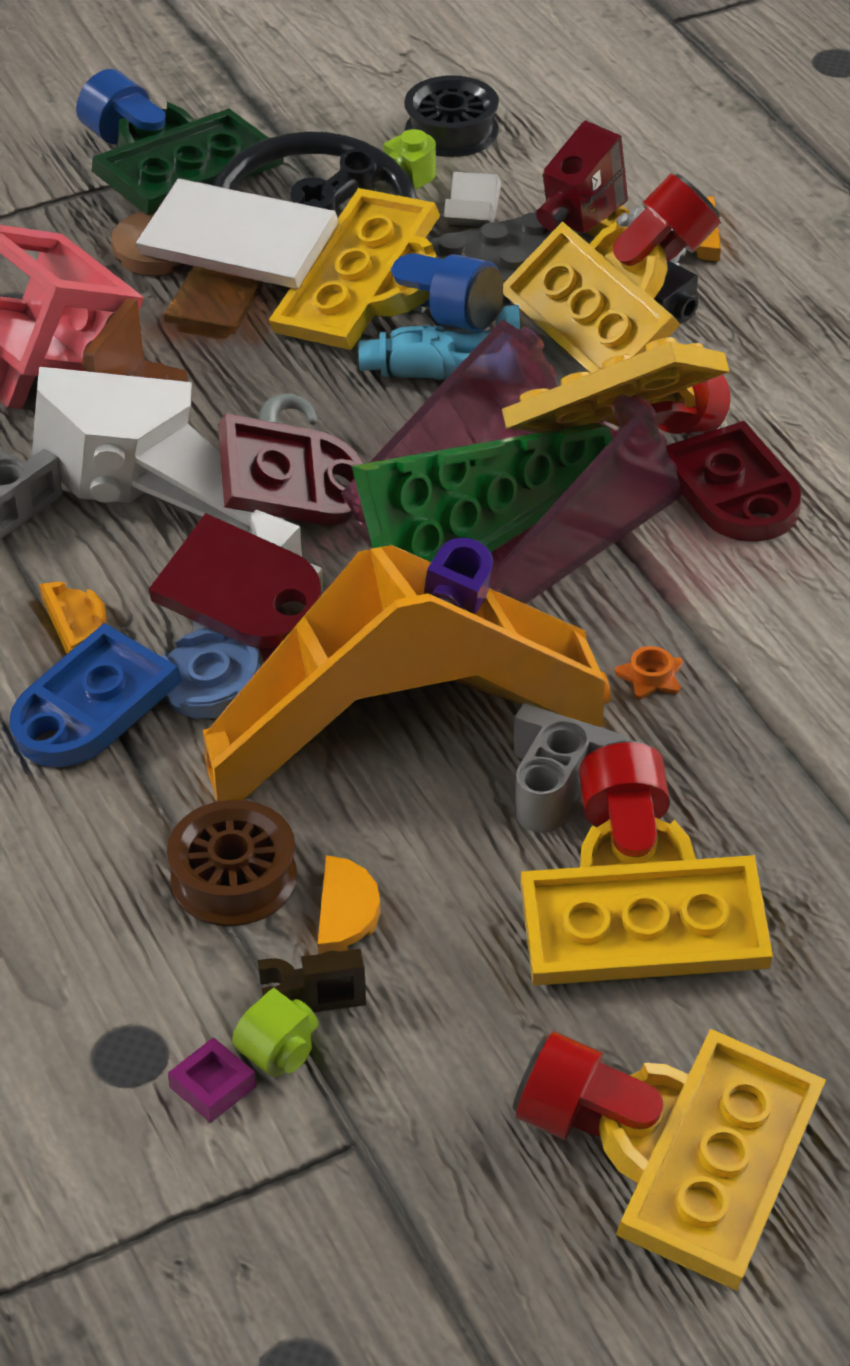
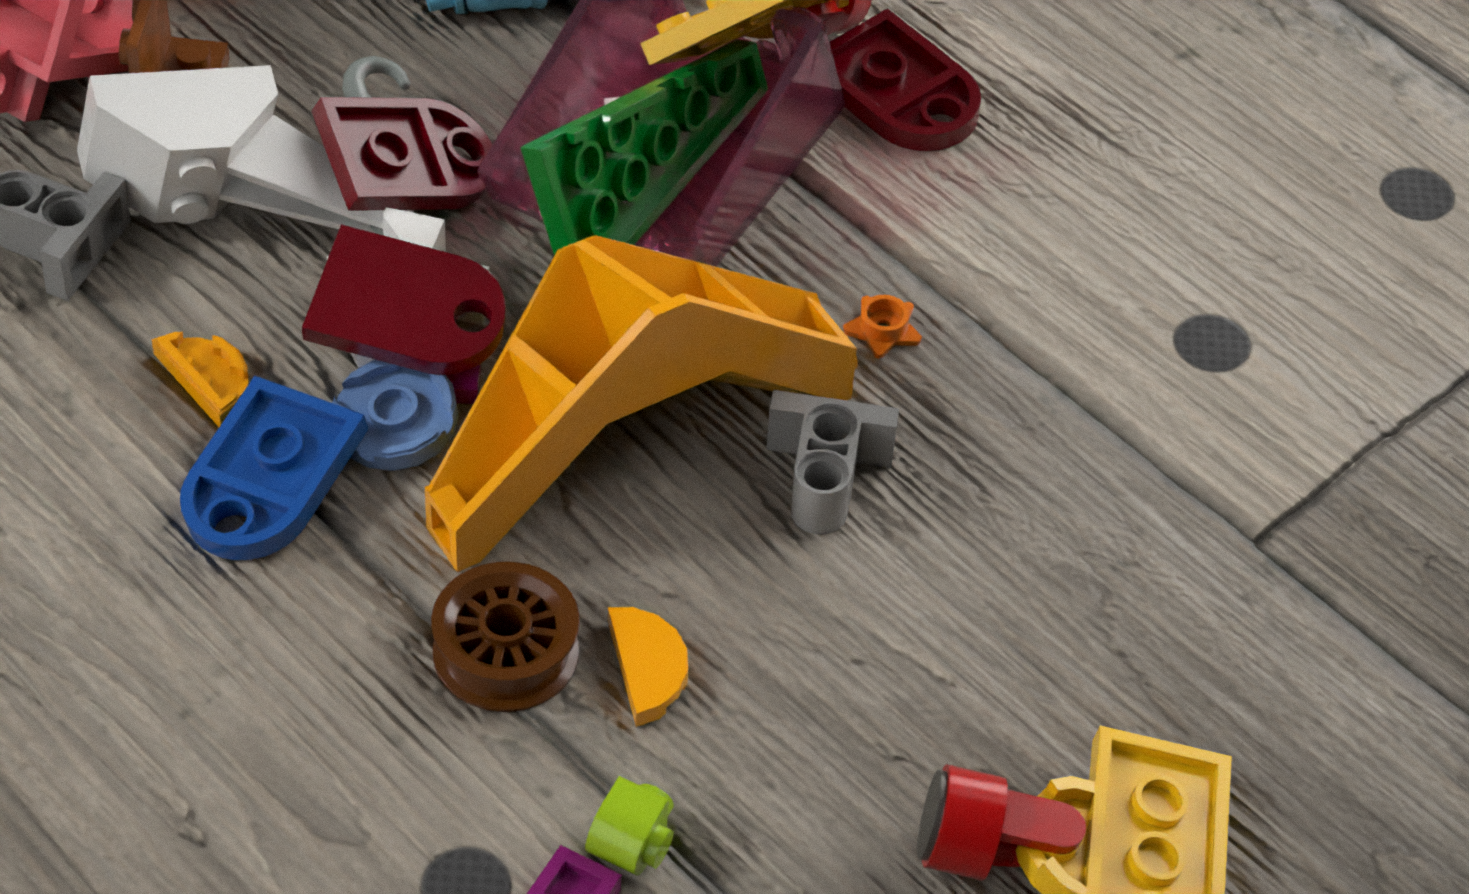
camera: 20 degrees left, 5 degrees up
(323, 982) = (661, 756): dark brown plate -> none
(460, 573) = (688, 258): dark purple plate -> none
(640, 892) = (964, 586): yellow plate -> none

